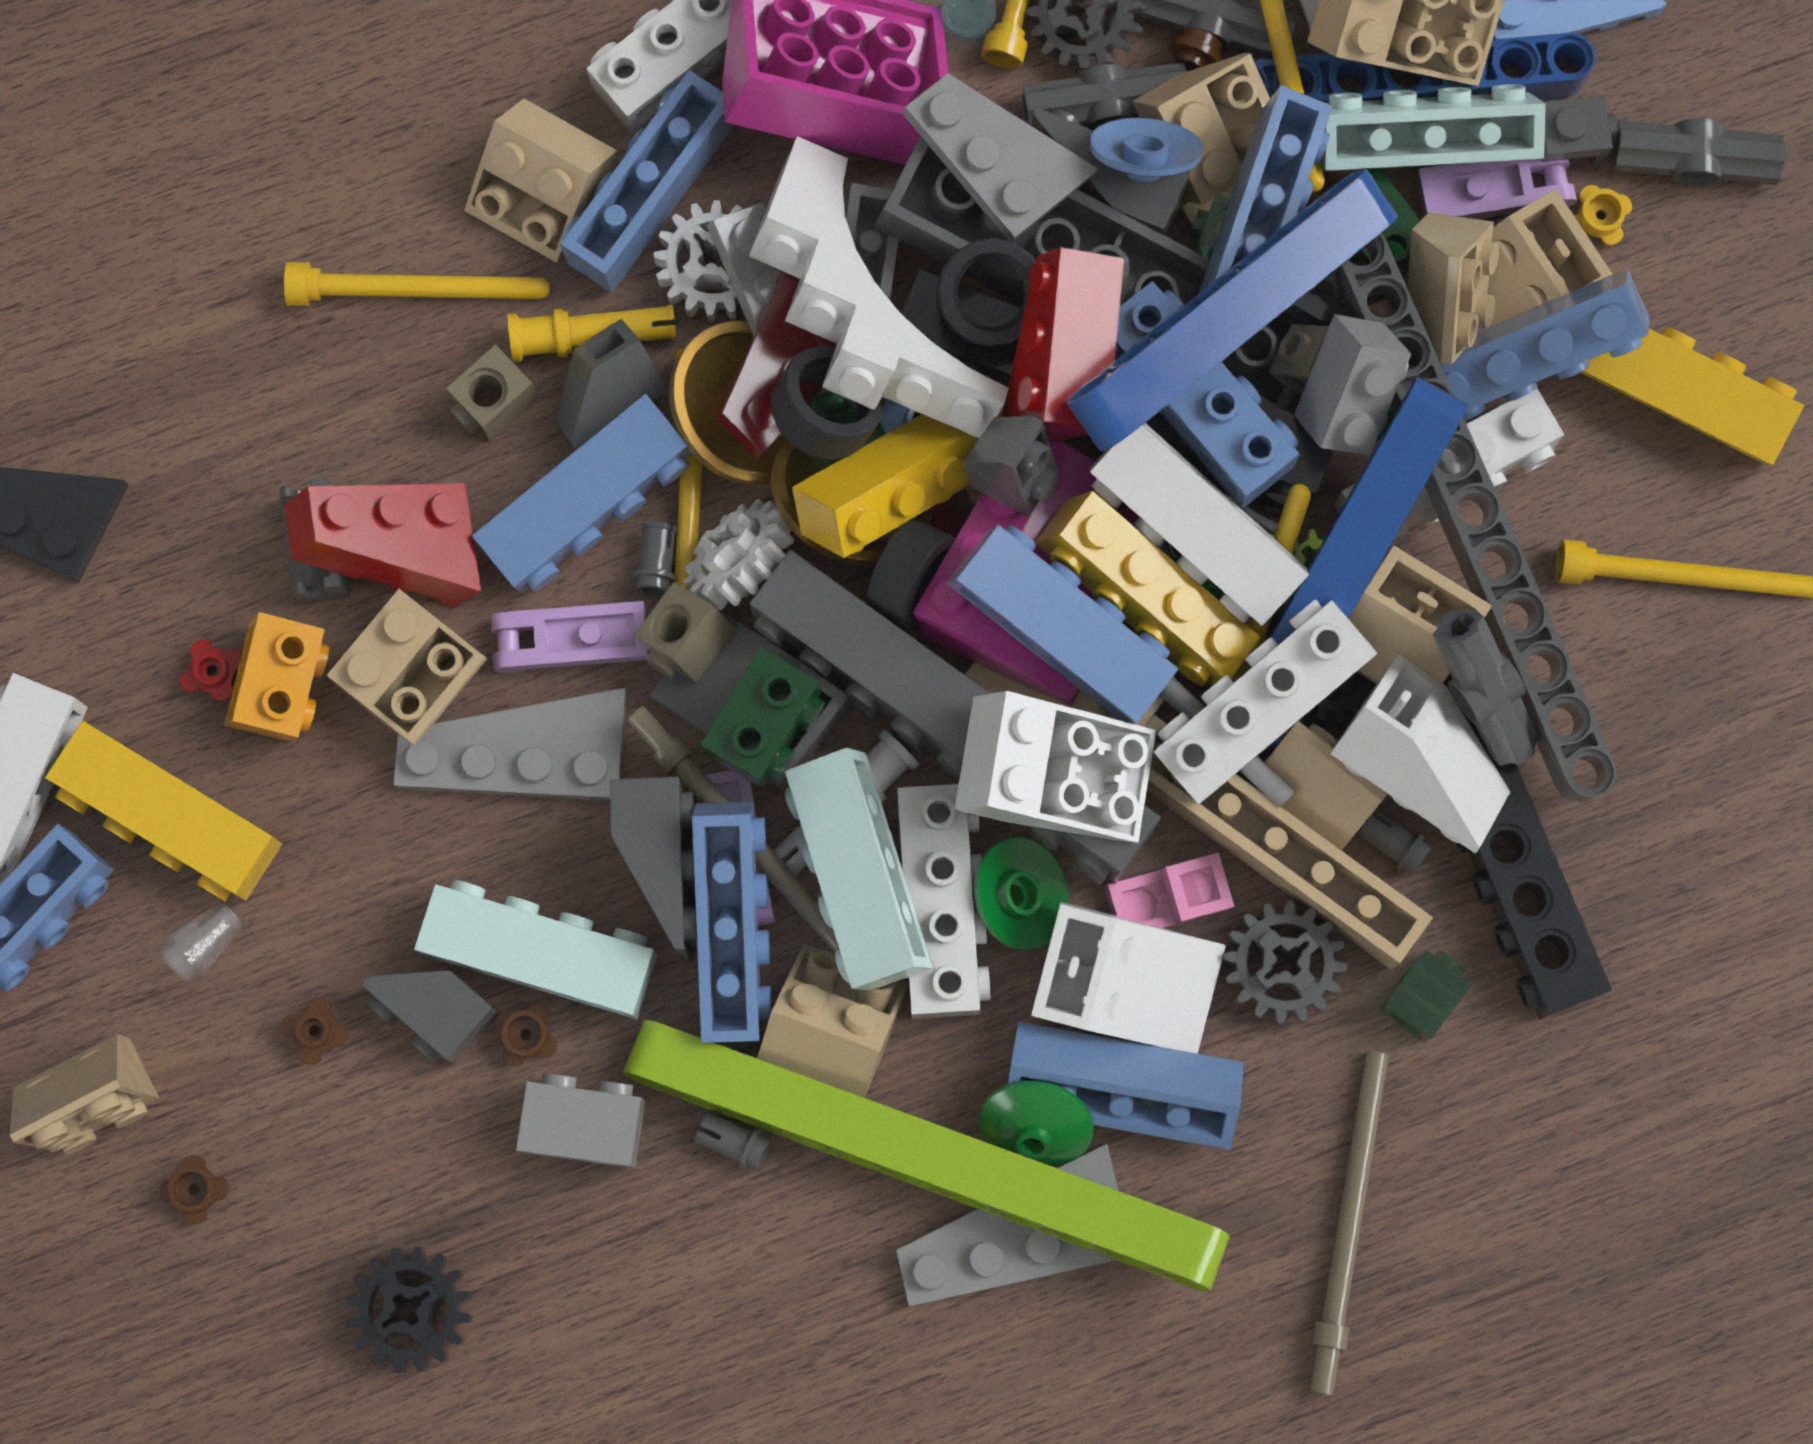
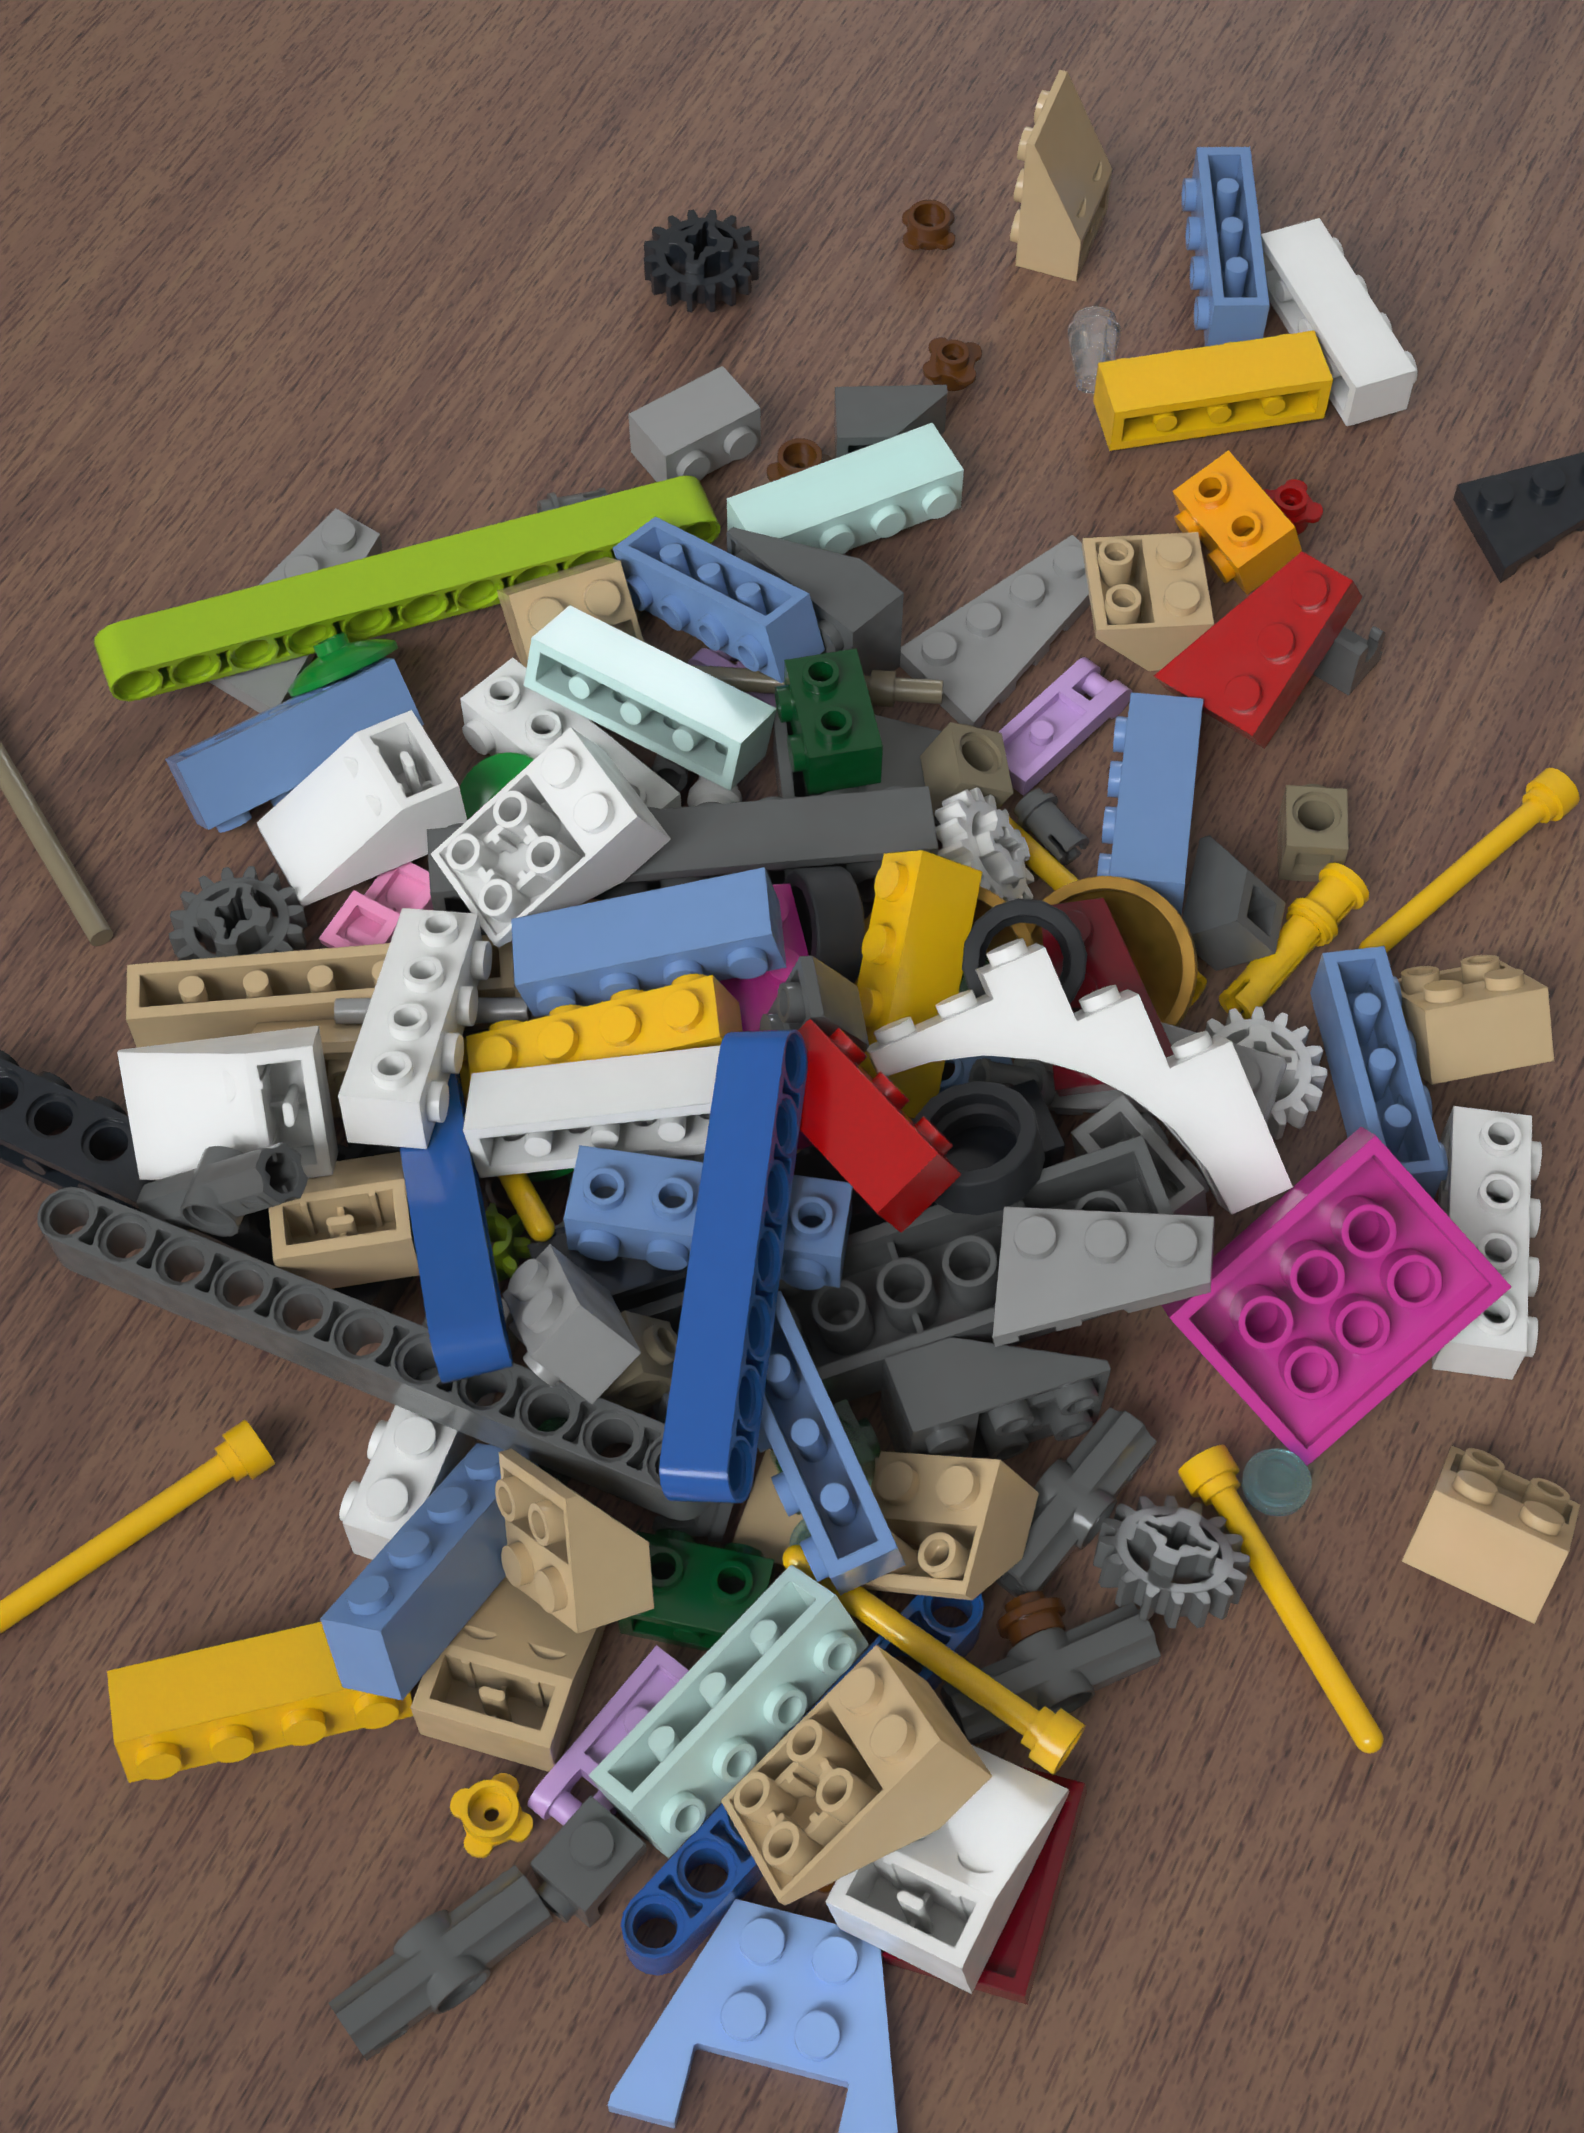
camera: 135 degrees right, 20 degrees down
(1146, 147) = (992, 1397): medium blue dish -> none
(1426, 994) = (90, 995): clear green brick -> none

